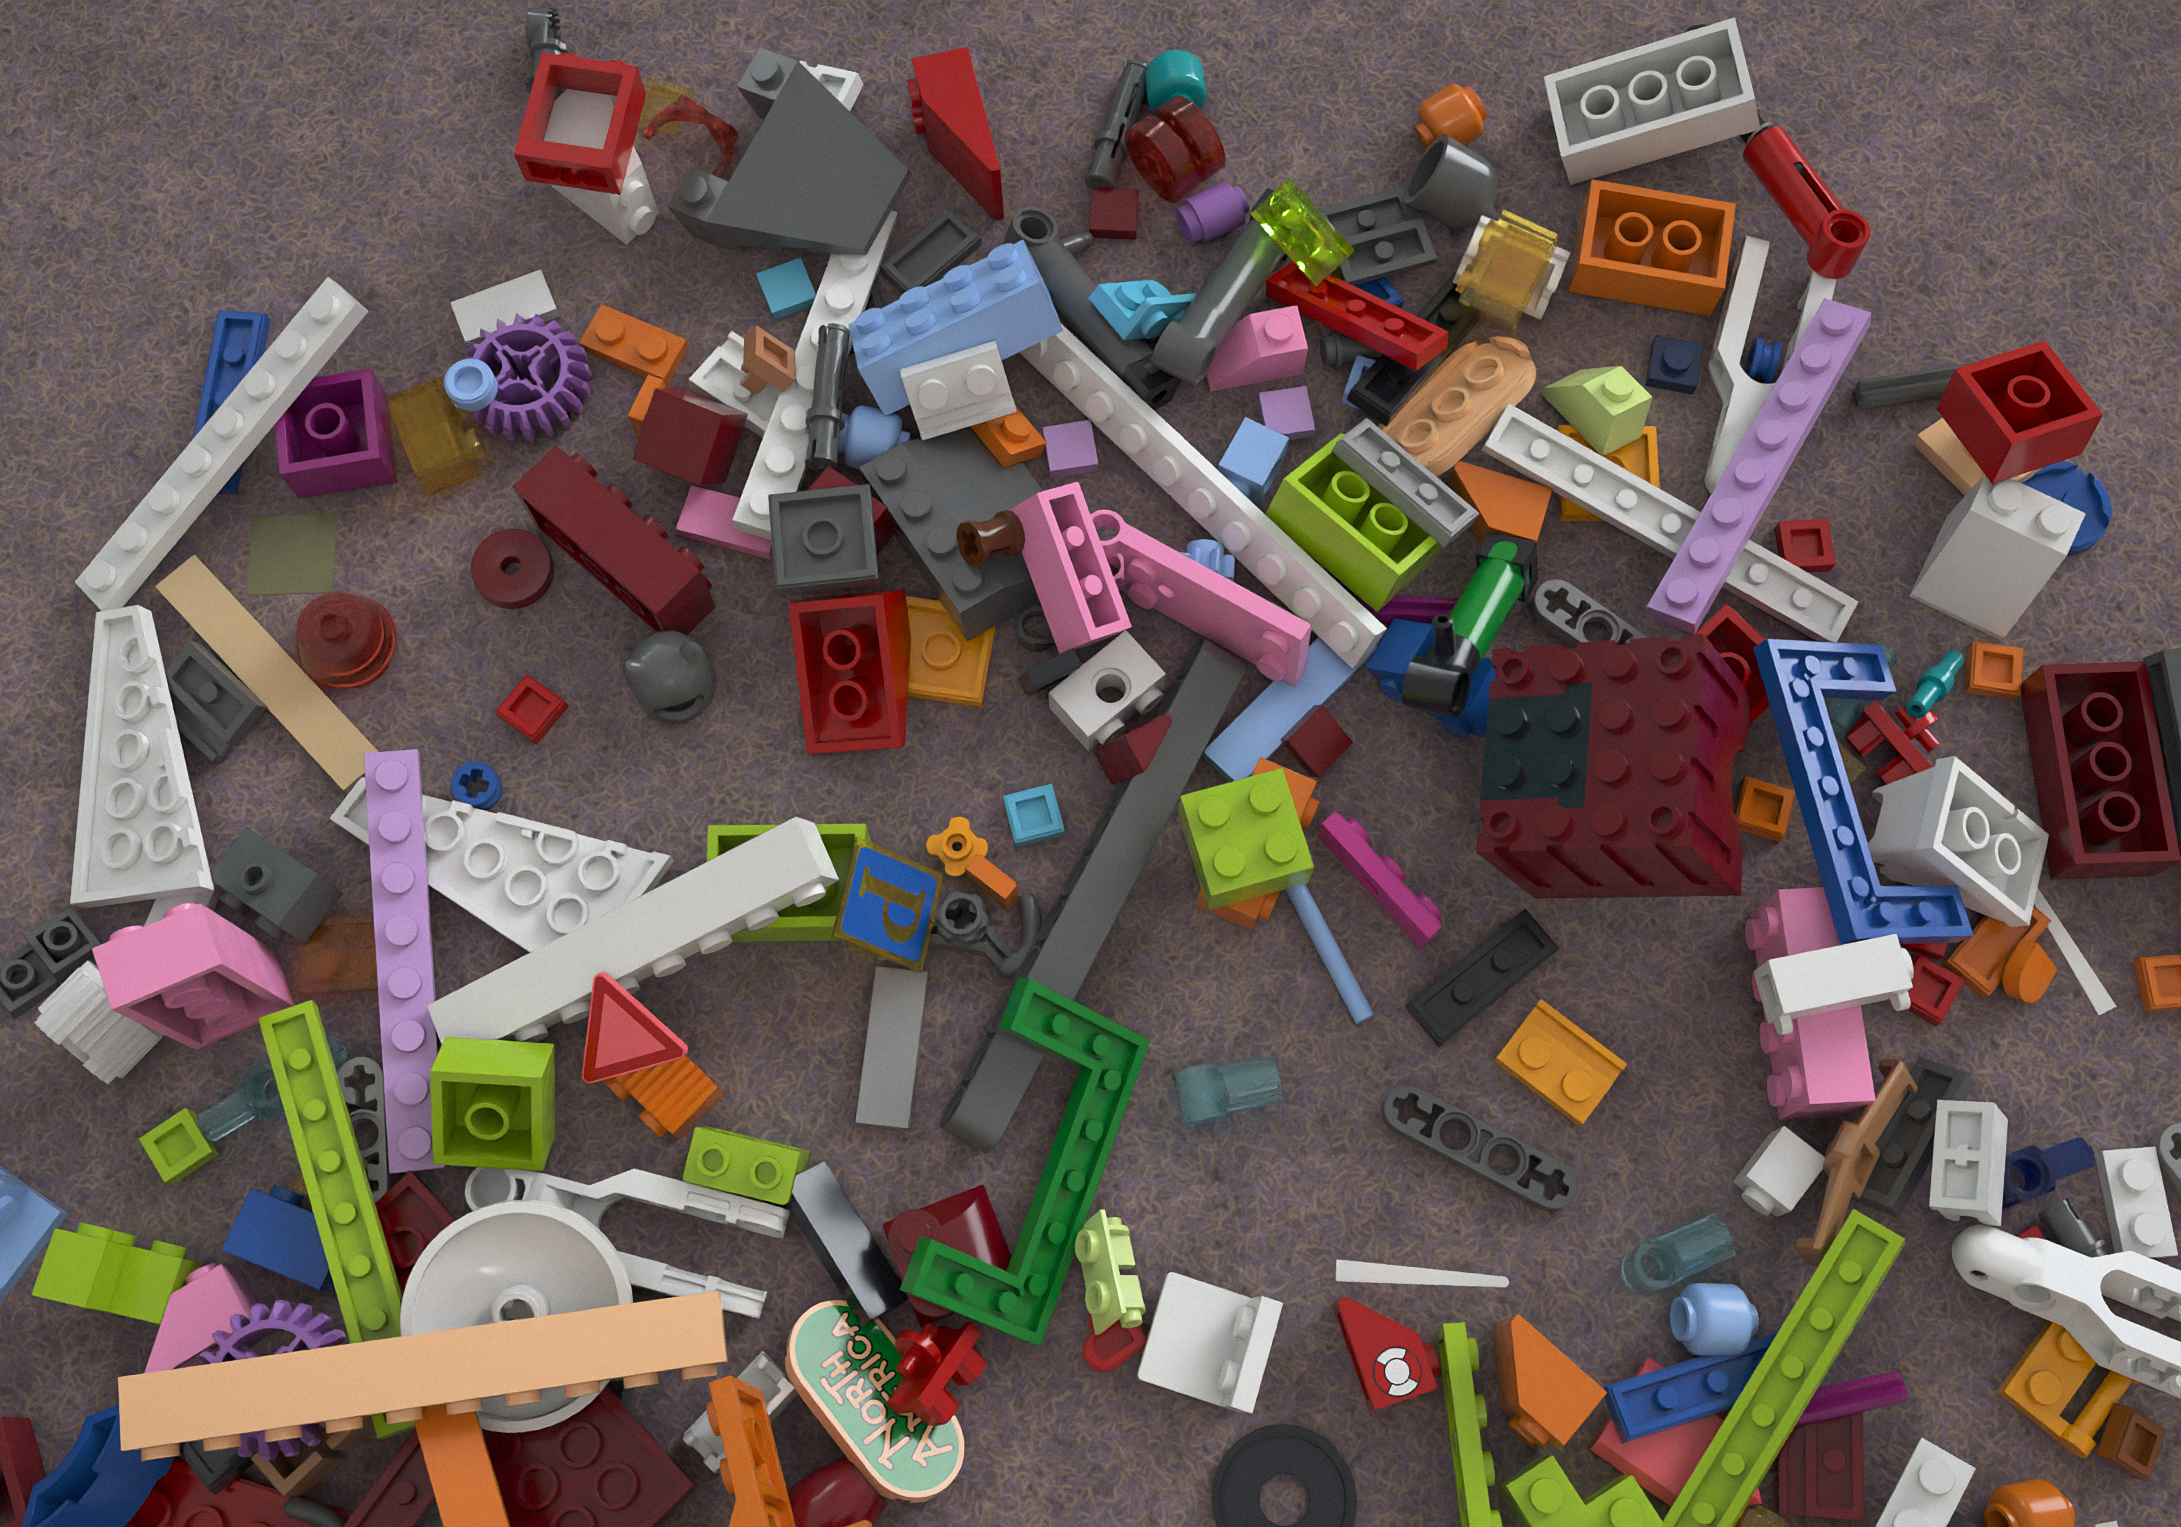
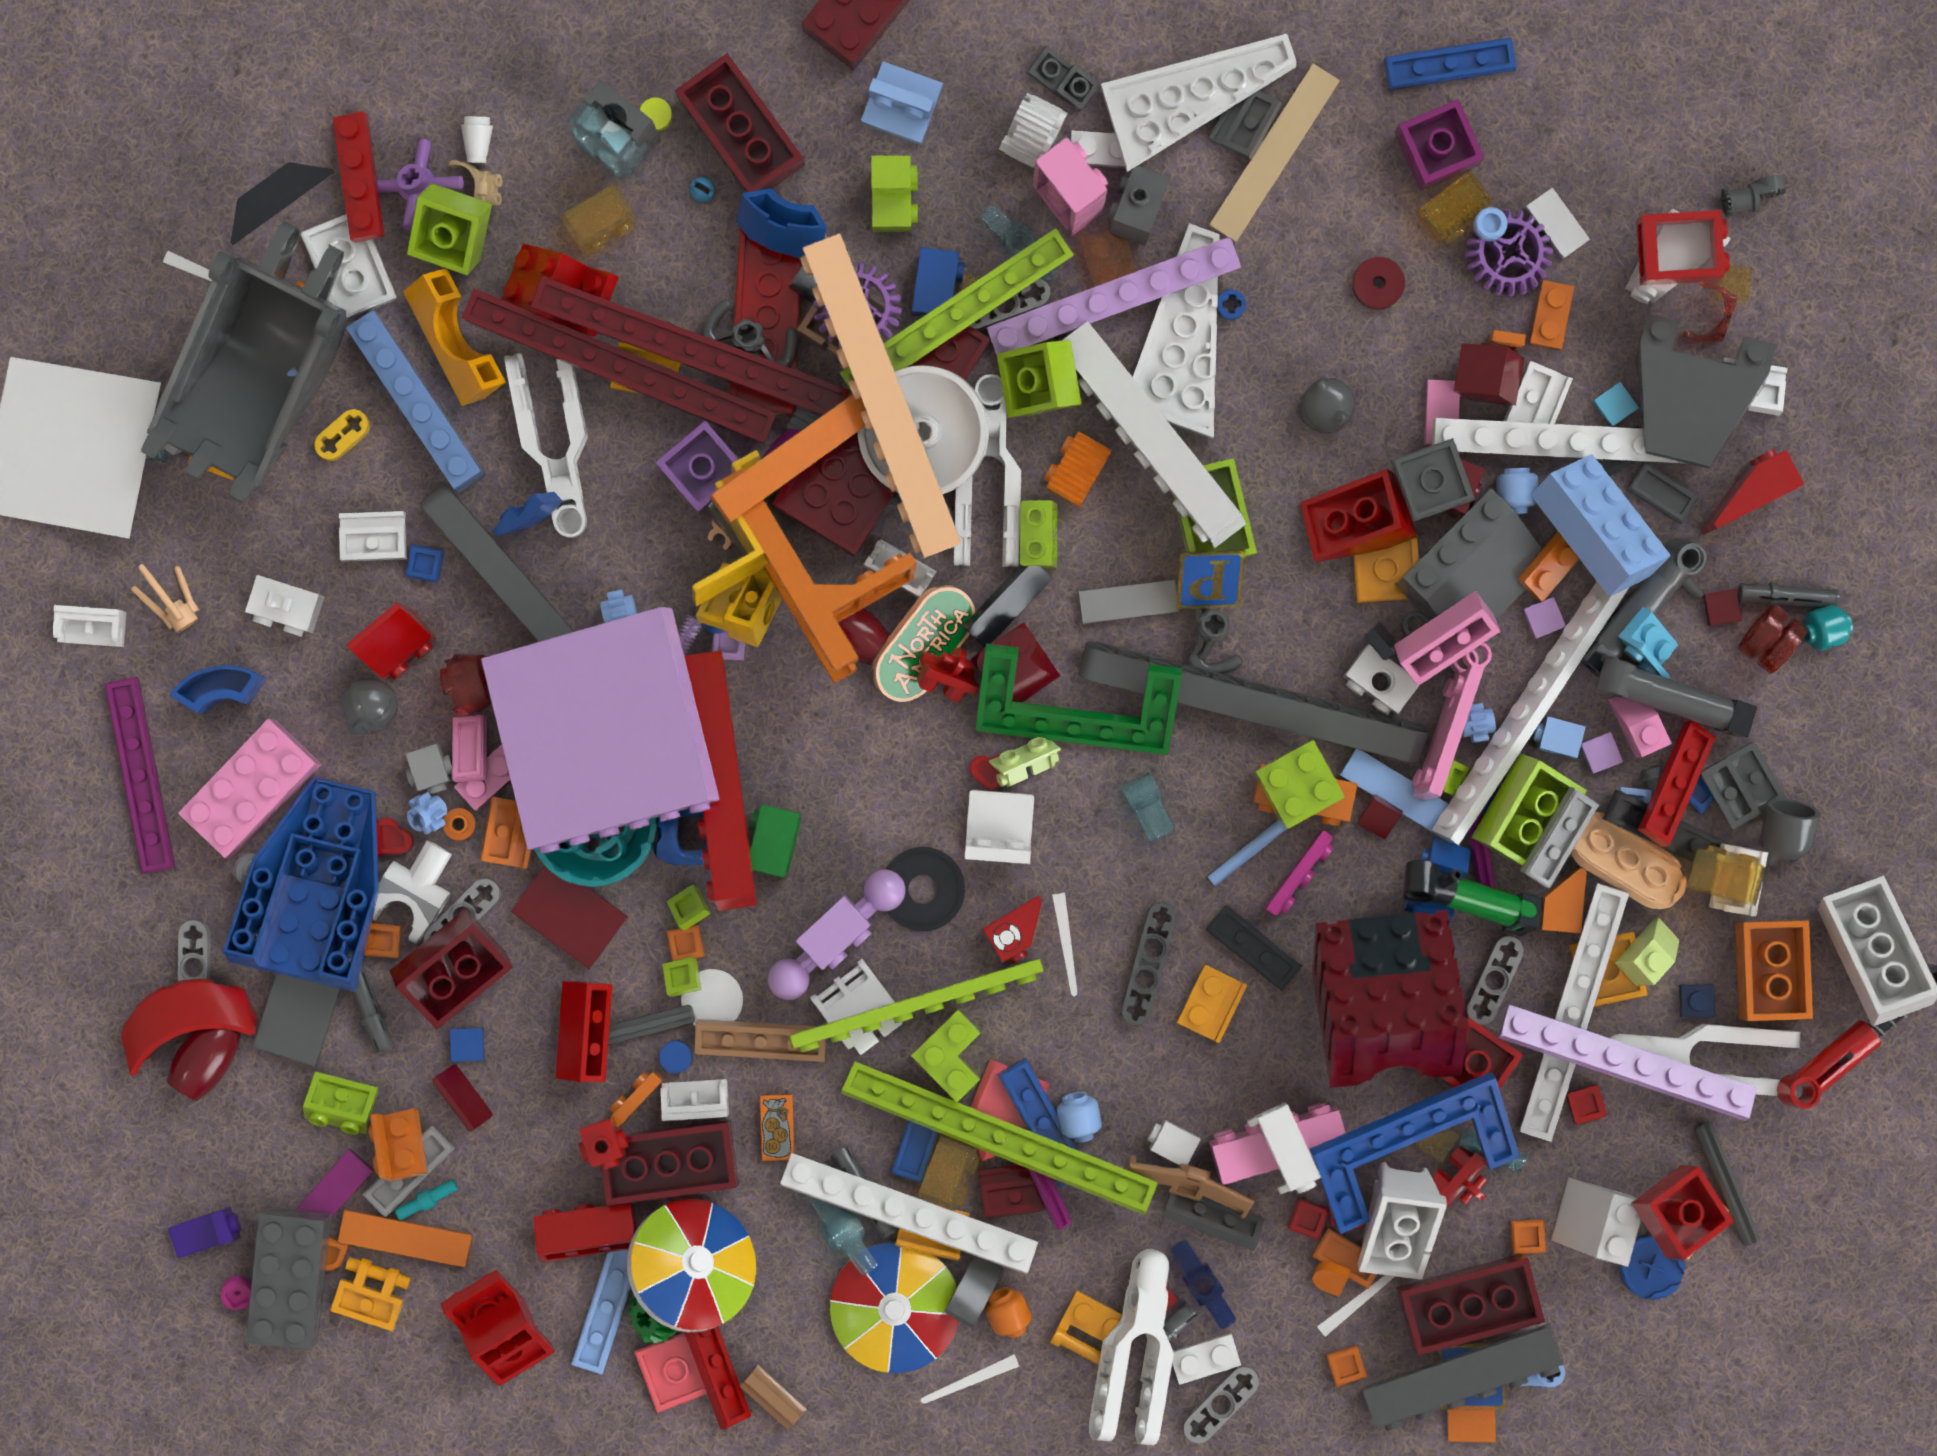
camera: 75 degrees right, 15 degrees up
(178, 1147) = (973, 198): lime plate -> none
(197, 1312) = (879, 247): bright pink slope -> none
(221, 446) = (1411, 80): white plate -> none
(291, 554) = (1357, 139): olive sticker -> none
(345, 640) = (1305, 194): clear red cone -> none
(531, 709) = (1289, 323): red tile -> none
(615, 544) = (1402, 348): dark red brick -> none
(624, 1034) = (1095, 444): piece -> none
(766, 362) = (1550, 410): nougat tile -> none
(826, 415) = (1519, 457): dark grey pin -> none
(957, 832) = (1261, 619): light orange plate -> none
(958, 390) = (1555, 539): white plate -> none
(990, 537) = (1454, 585): reddish brown bush -> none
(992, 881) = (1243, 637): orange tile -> none
(1034, 815) = (1292, 652): medium azure tile -> none
(1132, 750) = (1345, 704): dark red slope -> none
(1212, 213) = (1735, 673): medium lavender brick -> none
(1302, 231) = (1723, 735): clear neon green tile -> none
(1451, 112) = (1844, 819): orange head -> none
(1540, 1385) = (1016, 1020): orange slope -> none
(1679, 1253) = (1113, 1092): clear light blue piece -> none
(1763, 360) = (1711, 1057): blue bush -> none
(1763, 808) = (1399, 1098): orange tile -> none
(1935, 684) = (1506, 1197): teal bar -> none
(1969, 1161) = (1203, 1249): white hinge -> none
(2131, 1442) = (1064, 1367): dark orange tile -> none

